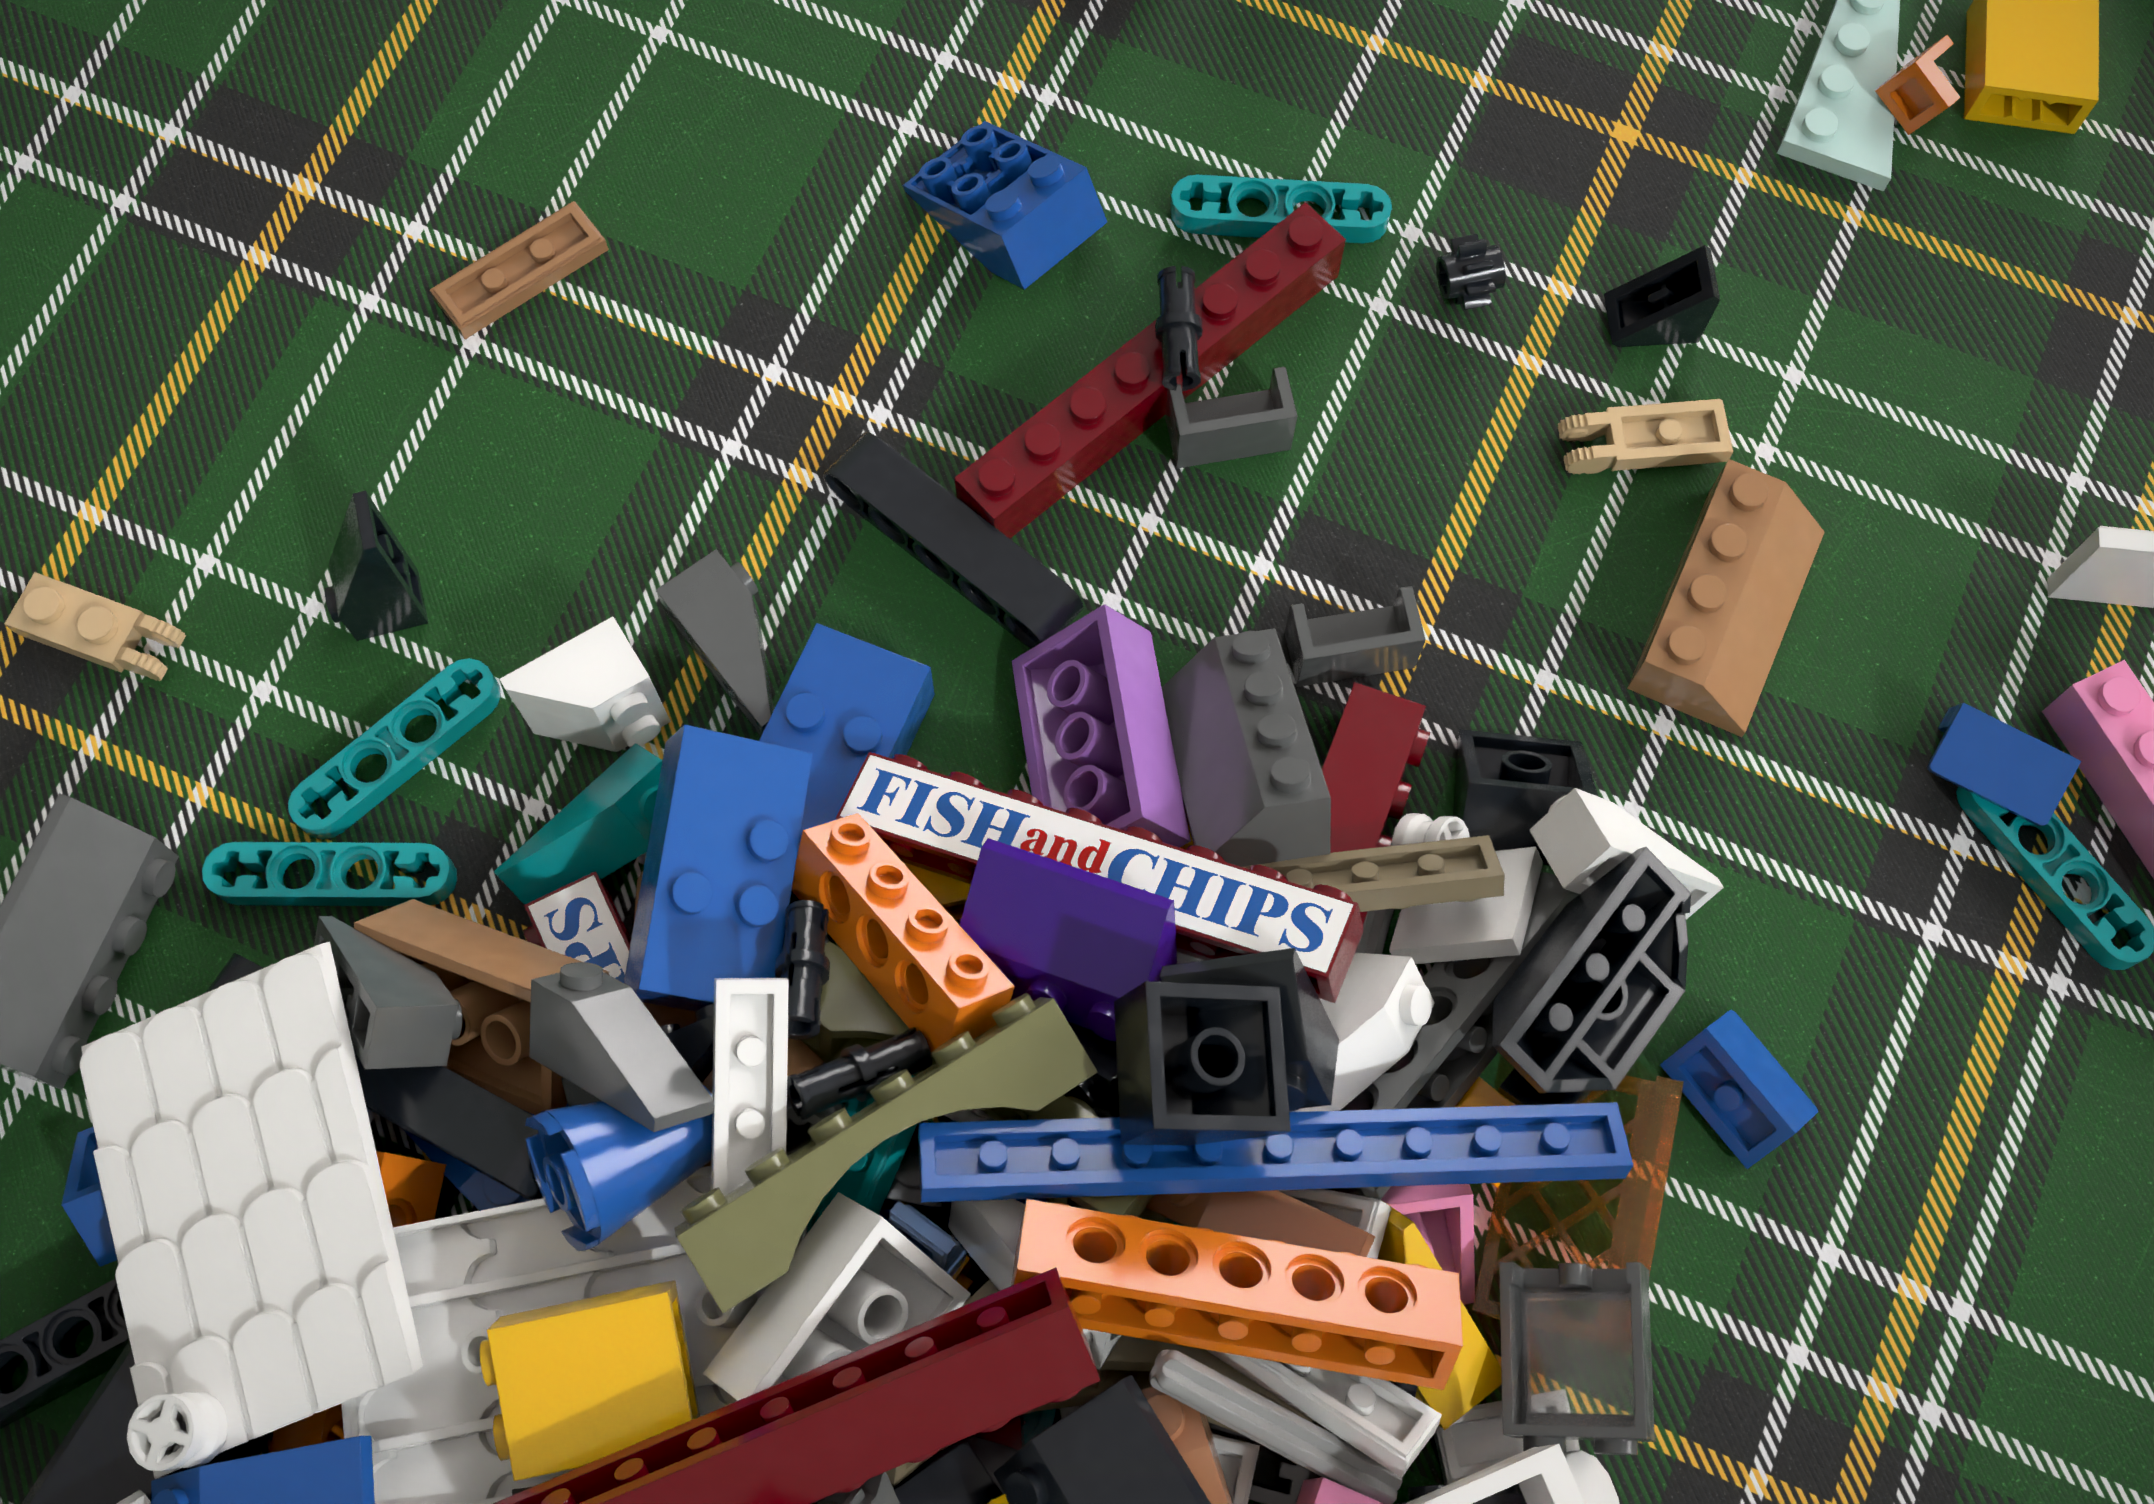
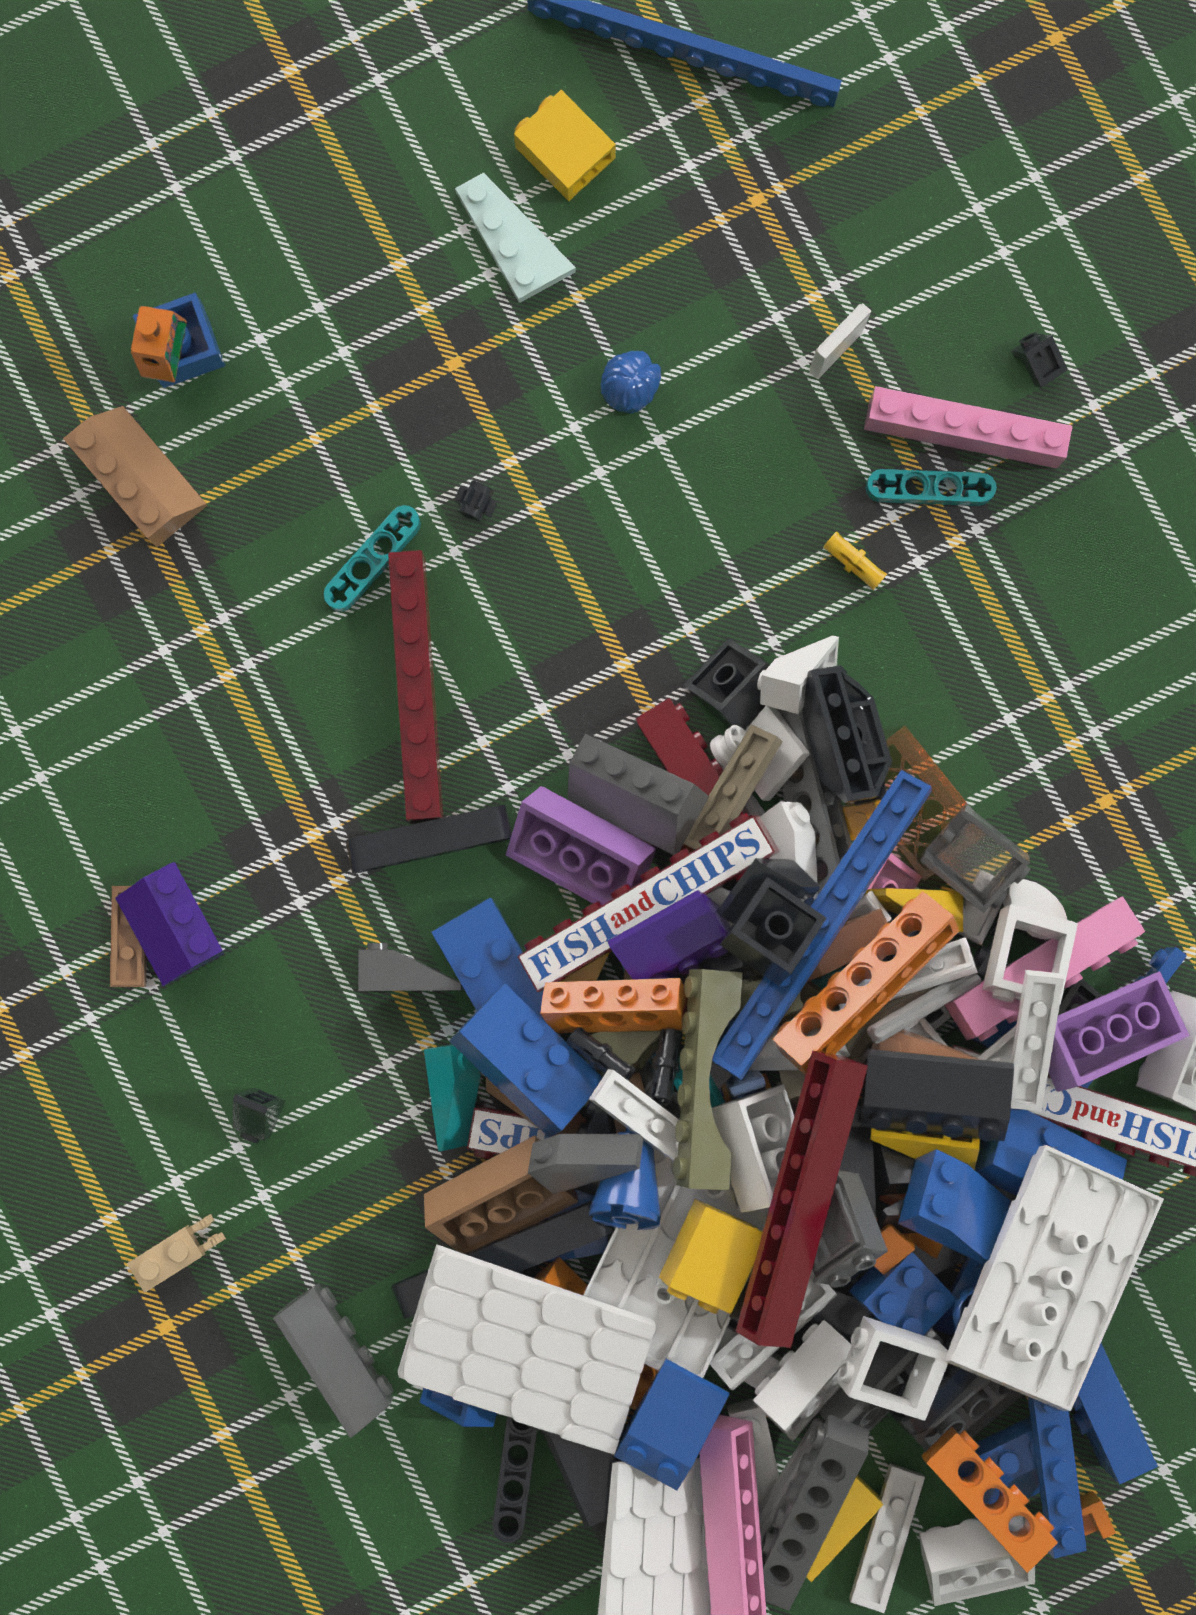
camera: 50 degrees left, 15 degrees up
(156, 1435) = (607, 1442): white wheel -> none
(329, 881) = (379, 1220): teal beam -> none
(392, 1005) = (482, 1234): dark grey slope -> none
(402, 756) = (344, 1154): teal beam -> none
(575, 298) = (169, 924): none -> dark purple slope
(589, 692) = (388, 1050): white slope -> none
(1009, 202) = (271, 683): blue slope -> none
(1178, 328) = (414, 666): black pin -> none
(1232, 424) = (465, 669): dark grey panel -> none
(1354, 641) = (611, 699): dark grey panel -> none
(1648, 436) = (616, 487): tan hinge -> none
(1666, 303) = (558, 428): black slope -> none
(1730, 600) = (716, 521): medium nougat slope -> none
(1740, 1088) = (921, 698): blue panel -> none
(1810, 349) = (630, 381): none -> blue hair
(1851, 834) = (854, 560): none -> yellow pin
(1919, 89) = (543, 216): orange panel -> none
(2002, 764) = (875, 473): blue panel -> none

